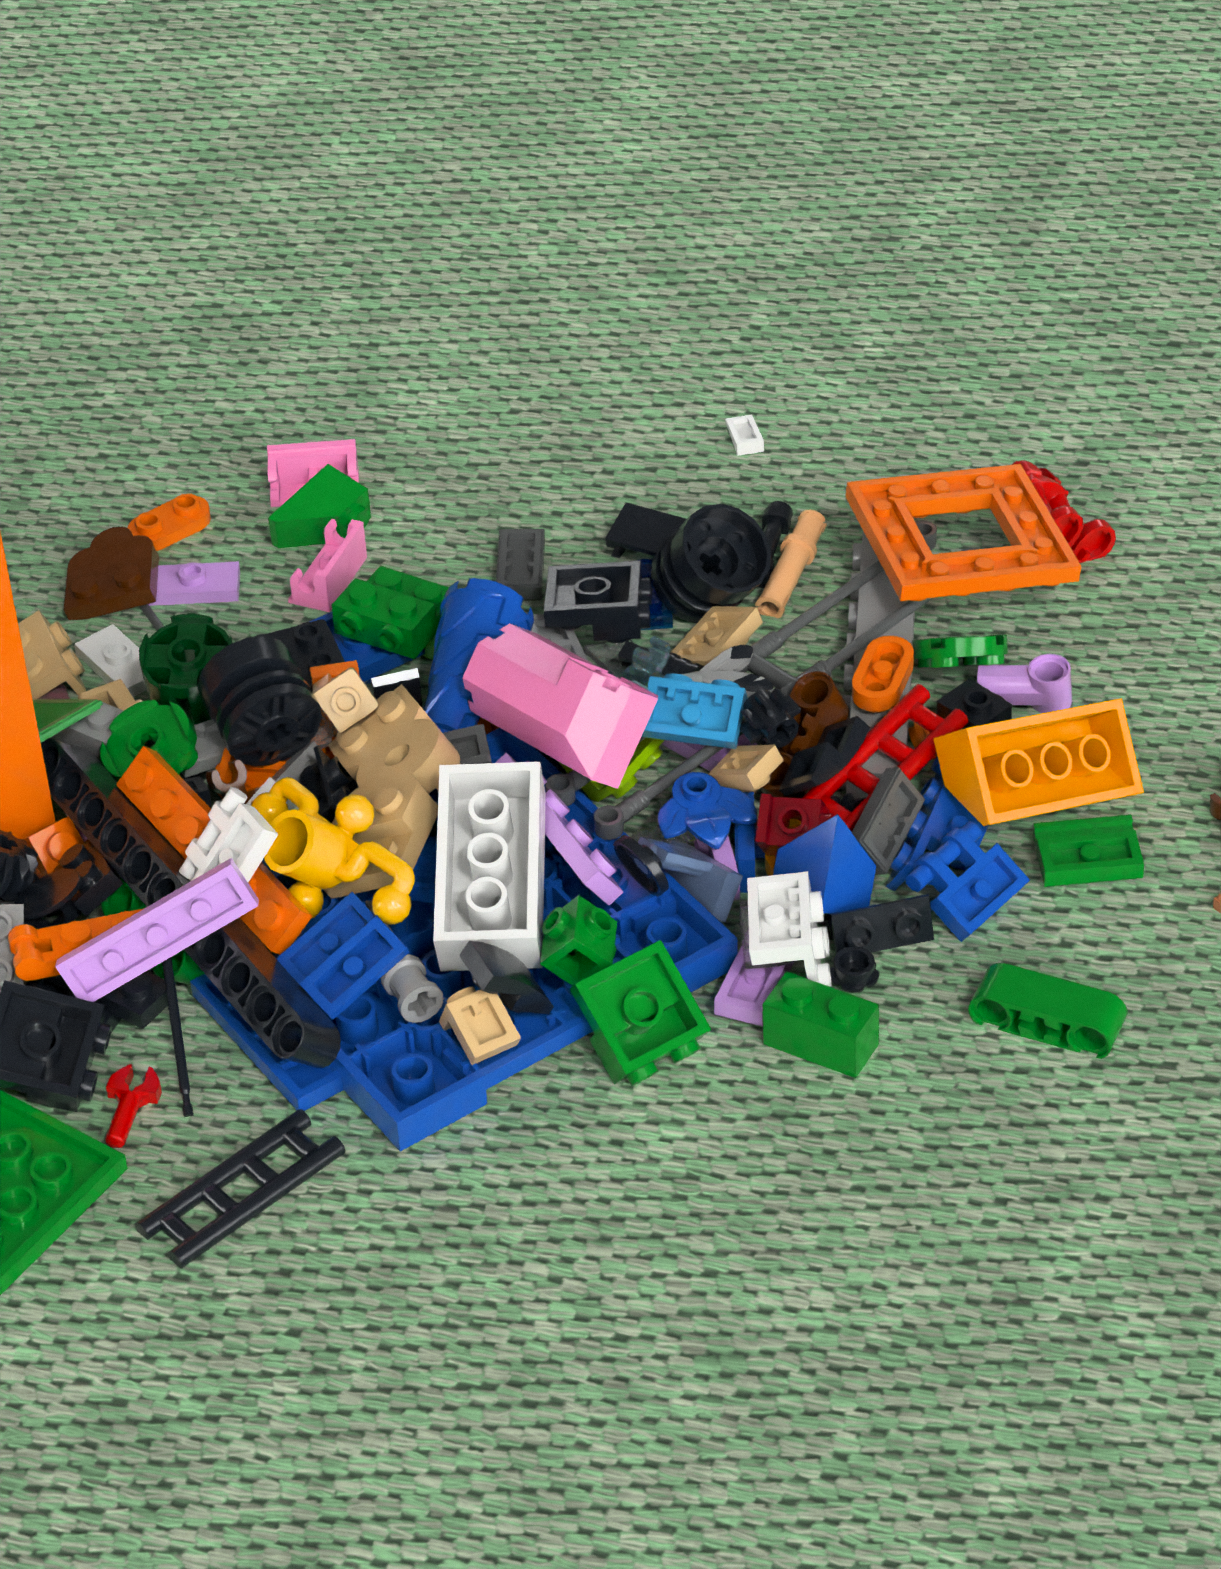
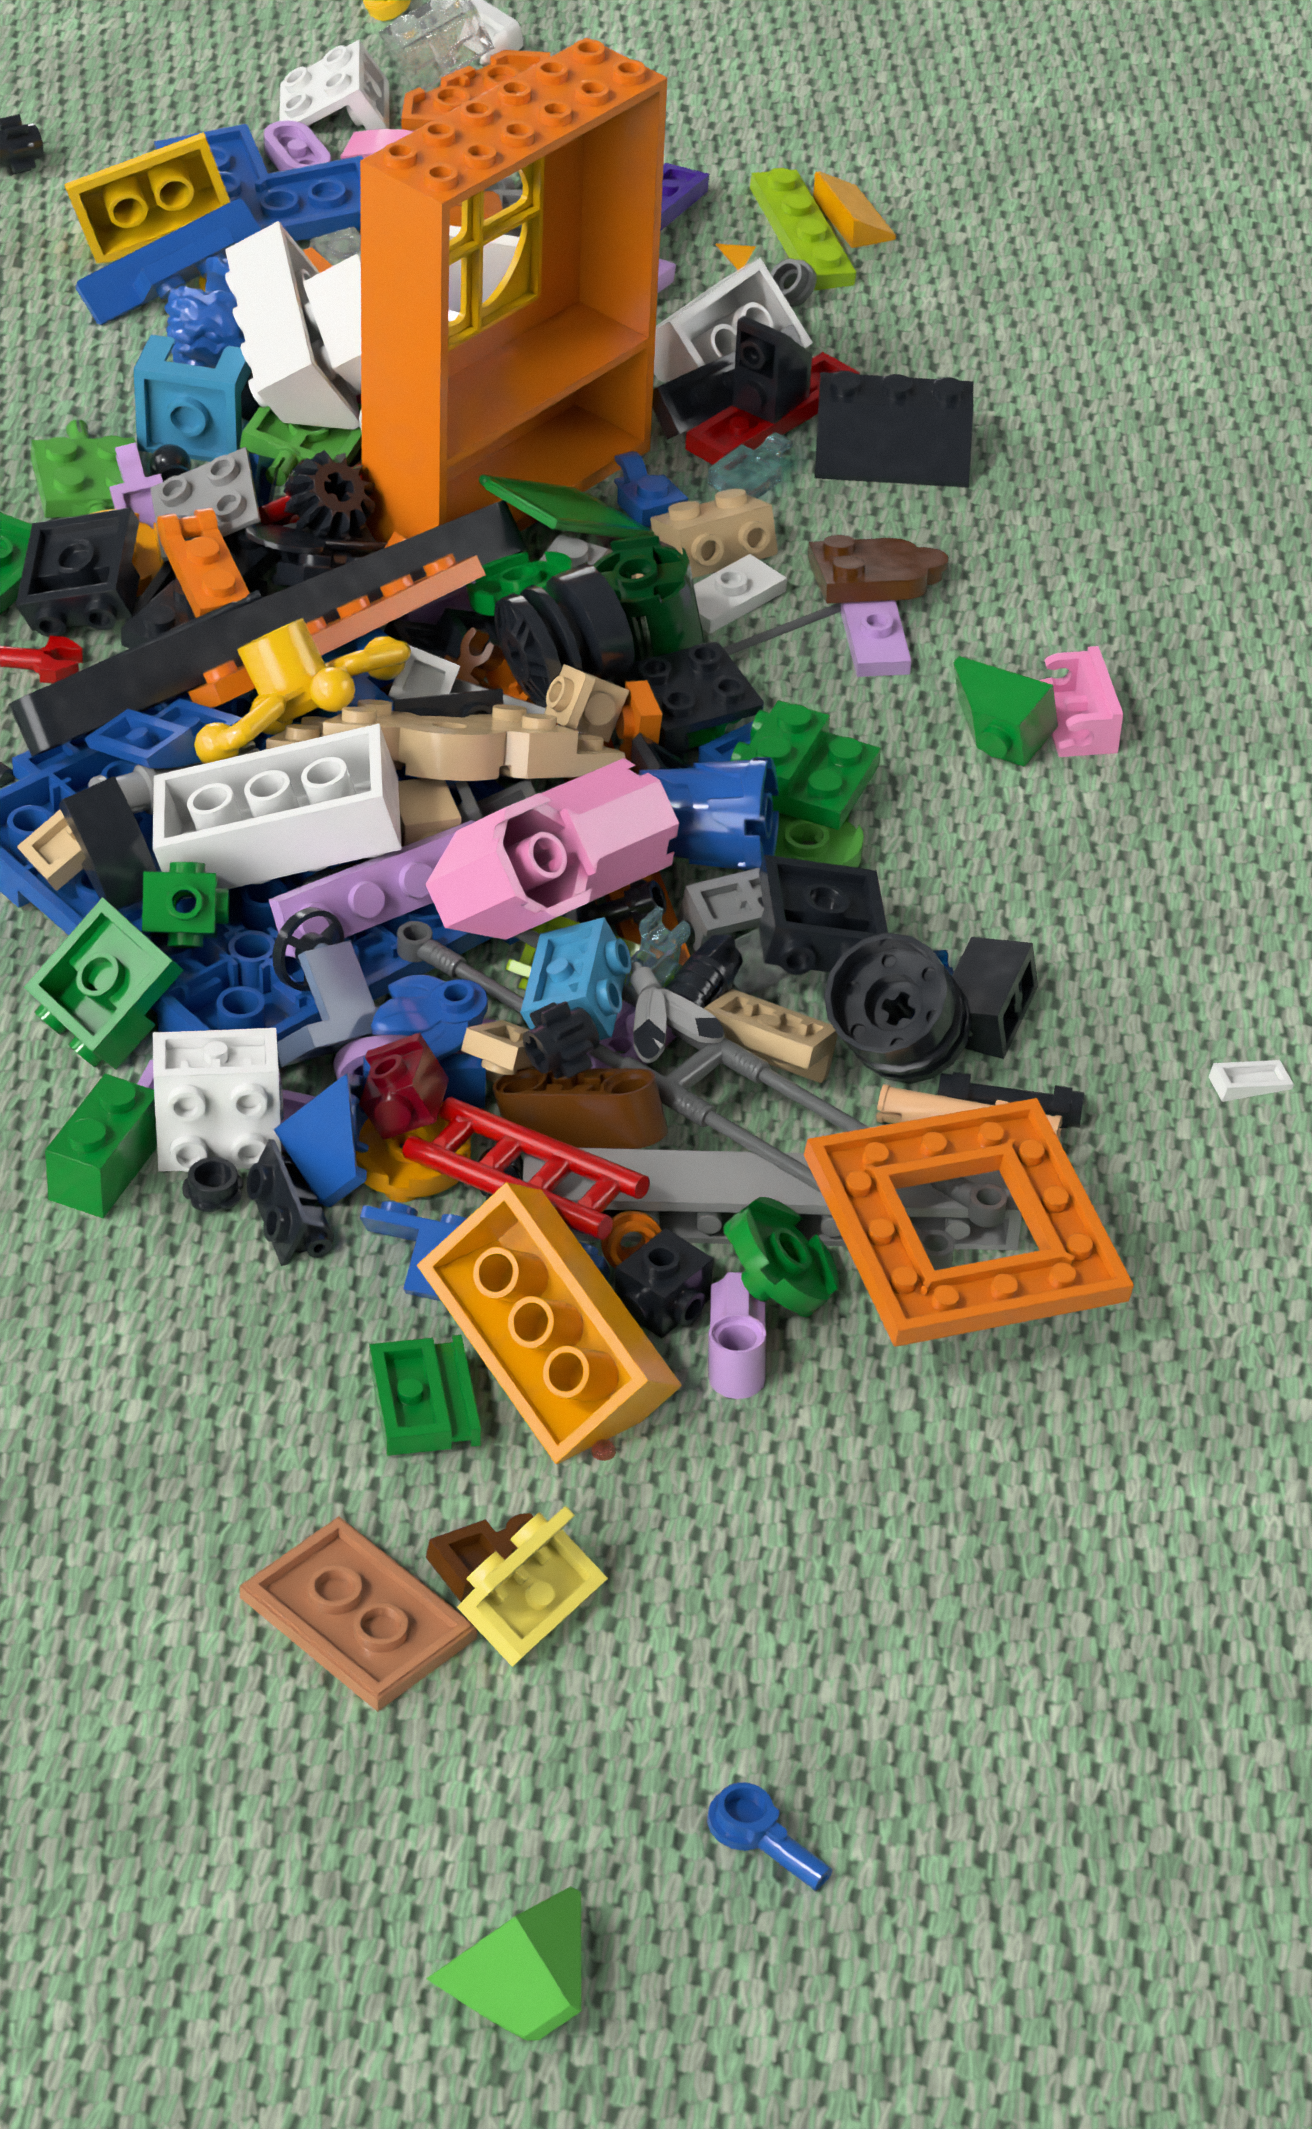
camera: 80 degrees right, 0 degrees up
(157, 932) = (176, 586): lavender plate -> none
(172, 520) = (983, 609): orange plate -> none
(233, 833) = (280, 608): white plate -> none
(331, 568) = (905, 732): bright pink hinge -> none
(521, 561) = (937, 883): dark grey plate -> none
(826, 759) = (510, 1104): black slope -> none
(882, 673) = (689, 1159): orange plate -> none
(888, 818) = (426, 1175): dark grey plate -> none
(978, 892) = (341, 1287): blue plate -> none
(1048, 1009) = (129, 1349): green beam -> none
(1086, 540) = (1055, 1402): red piece -> none

